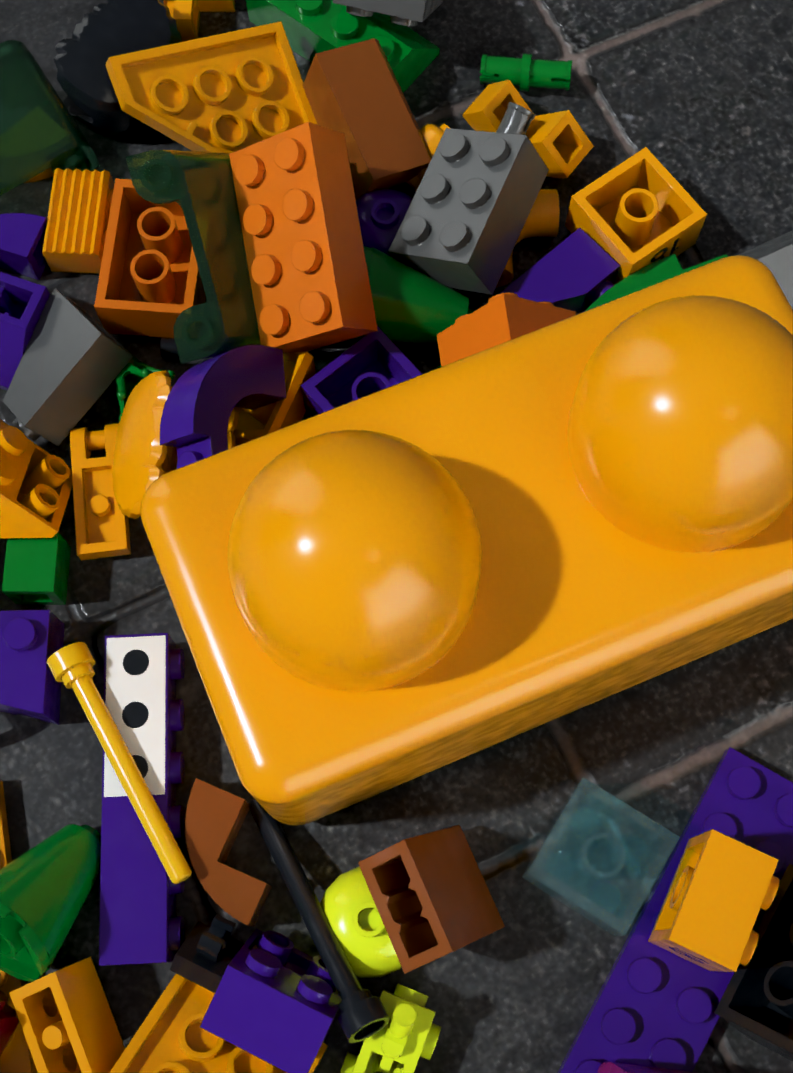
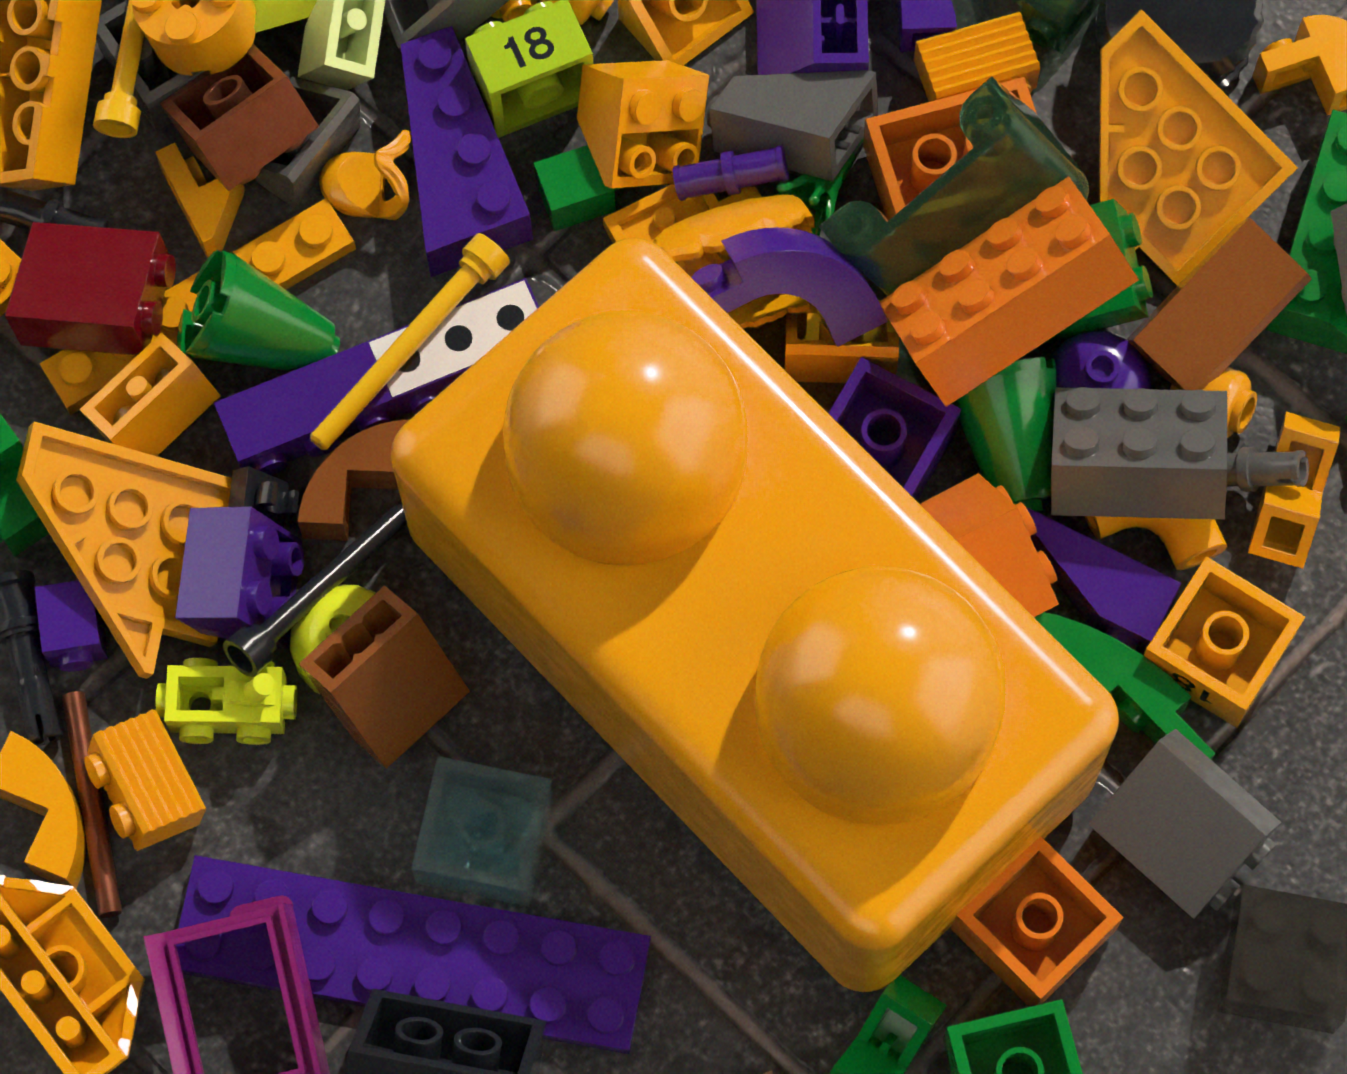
camera: 70 degrees right, 0 degrees up
(89, 431) = (730, 173): none -> dark purple pin
(716, 902) = (470, 937): light orange brick -> none

